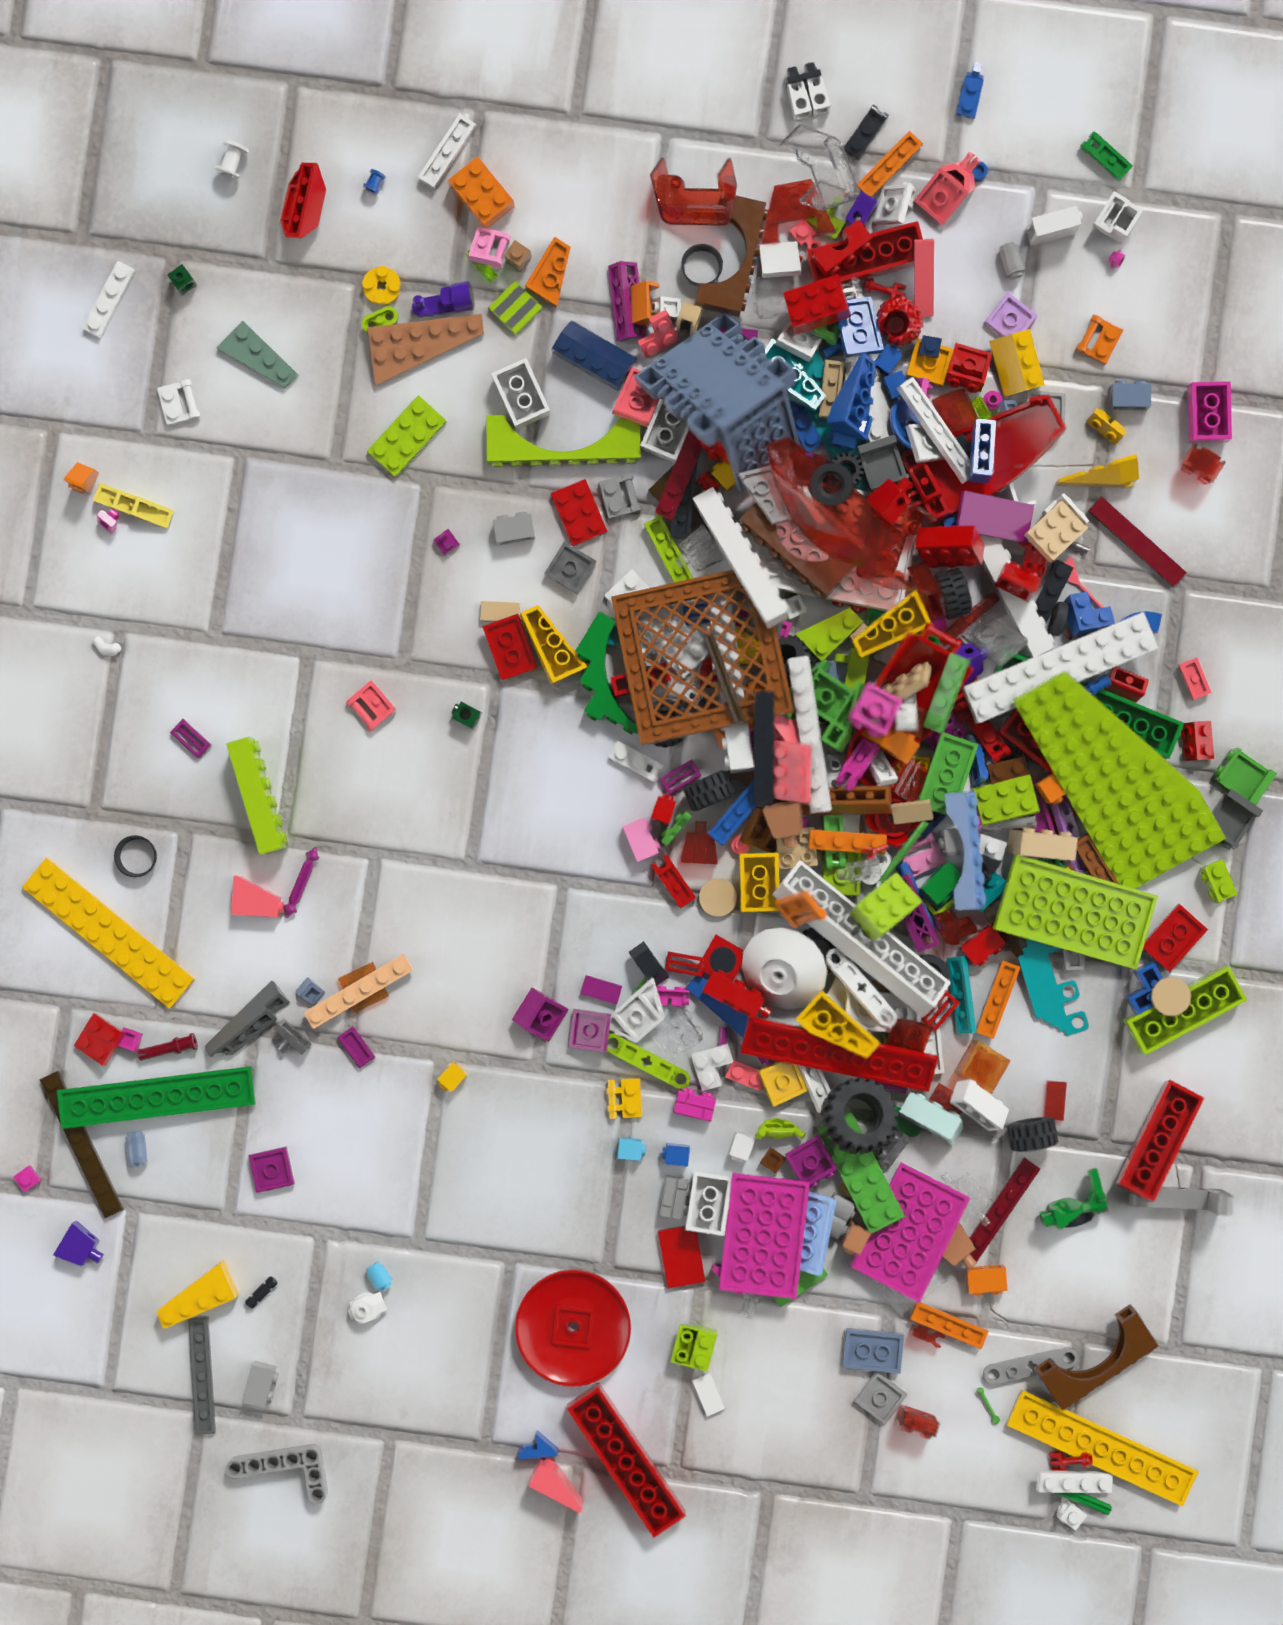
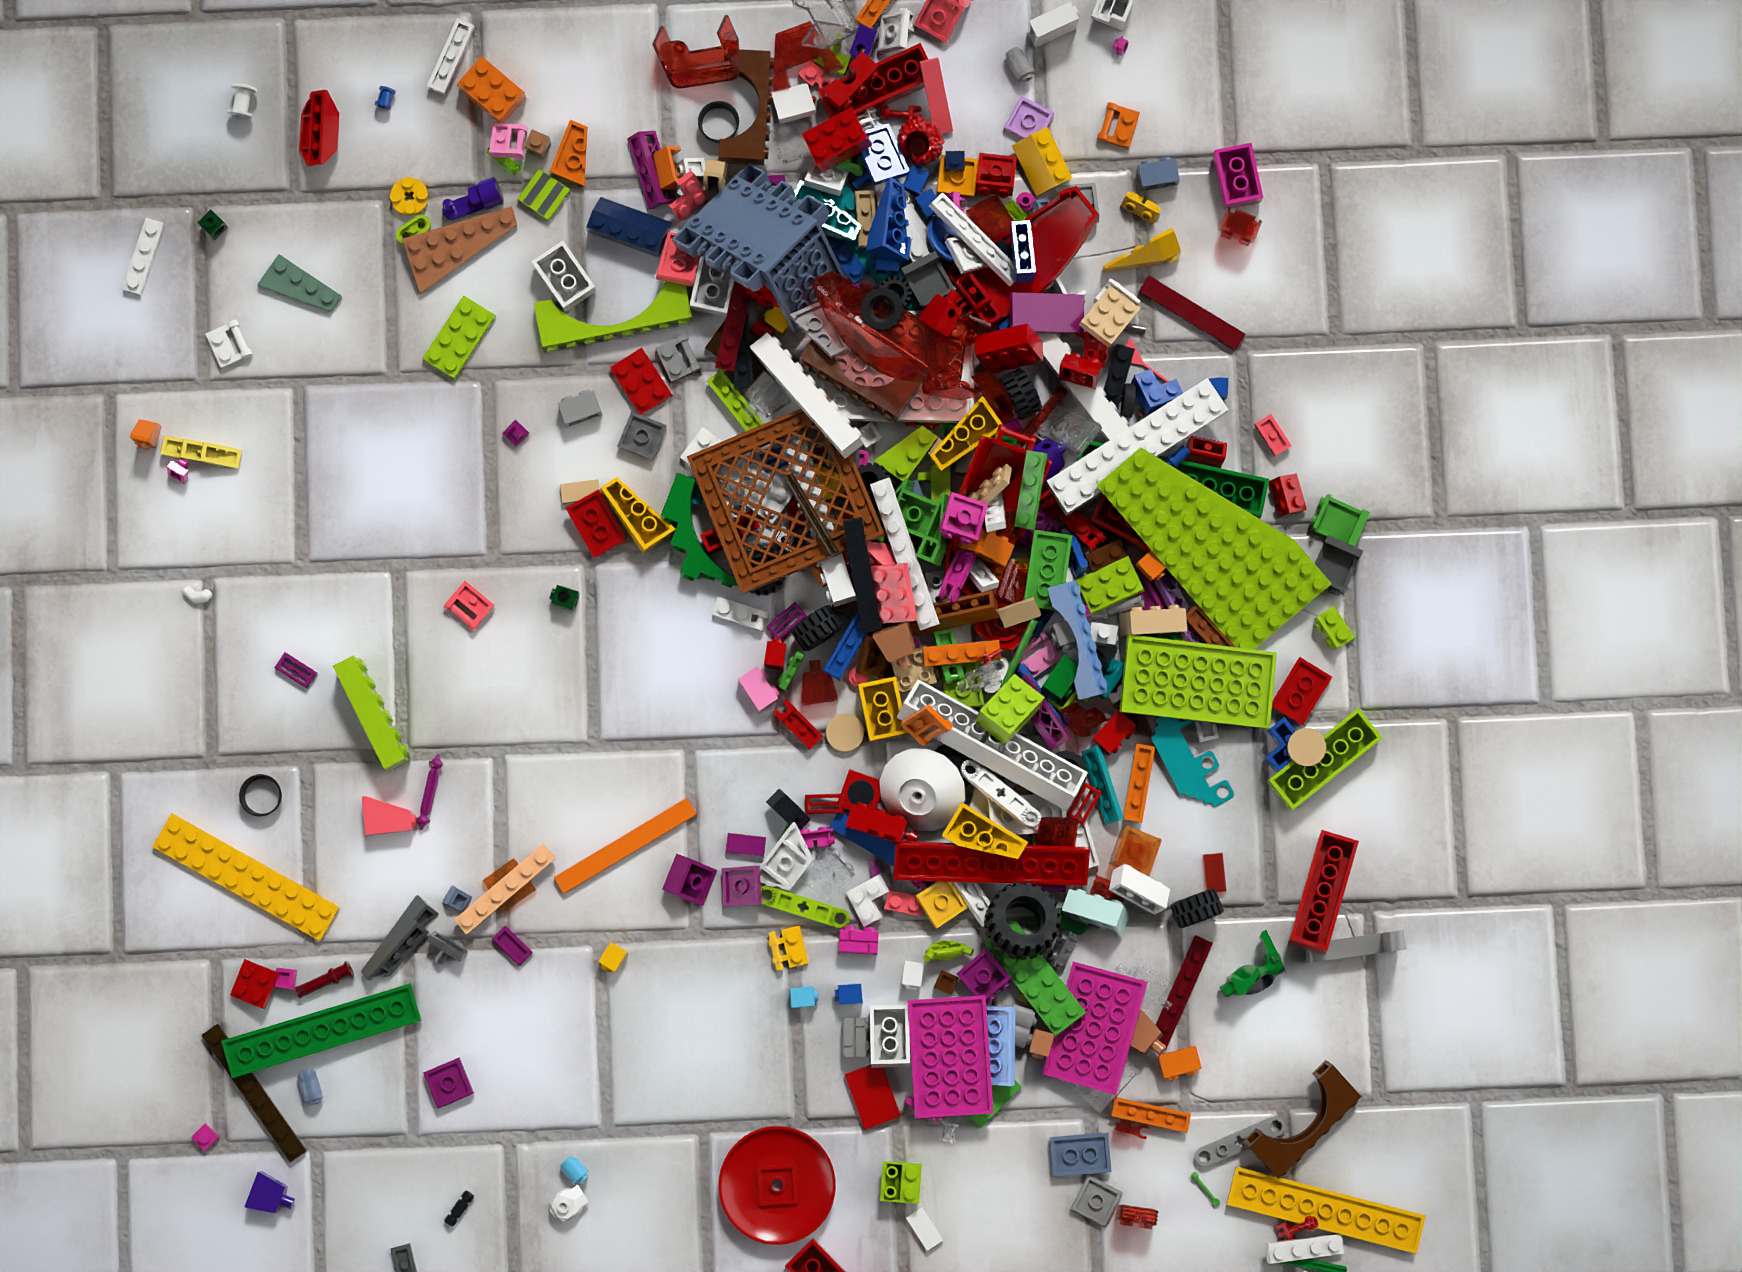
camera: 15 degrees left, 5 degrees down
(202, 1295) = (401, 1219): yellow wedge -> none
(483, 969) = (625, 845): none -> orange tile

